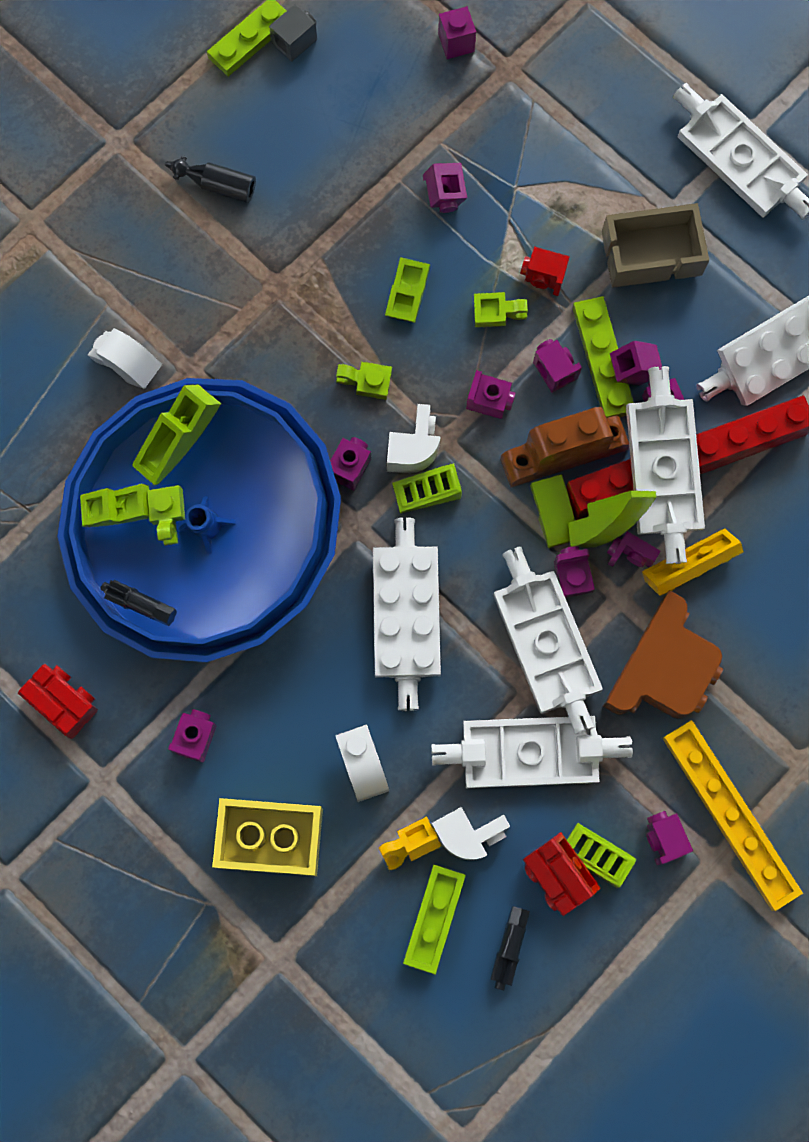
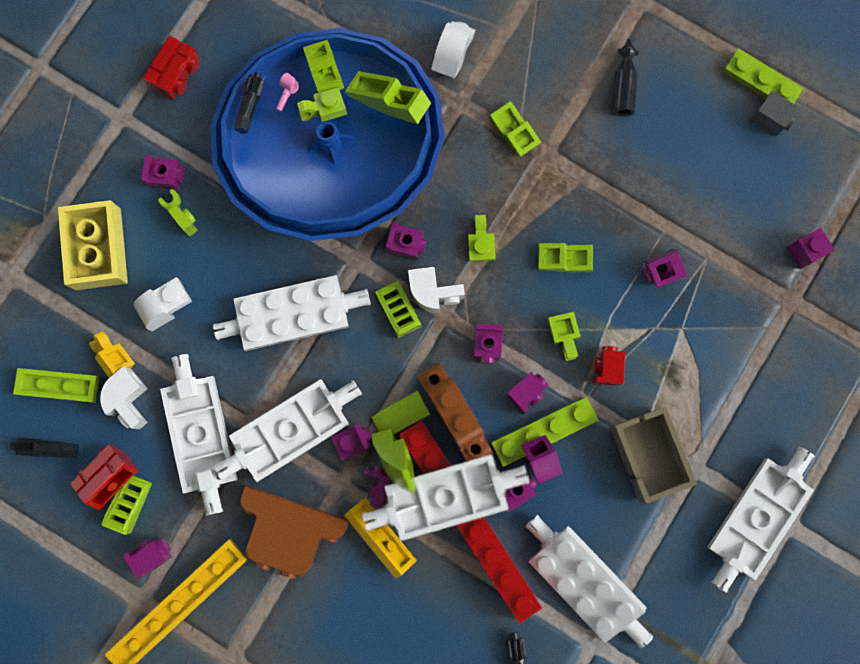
camera: 80 degrees right, 5 degrees up
(127, 549) = (290, 87): none -> bright pink hand
(241, 314) = (514, 130): none -> lime slope
(257, 721) = (183, 218): none -> lime plate

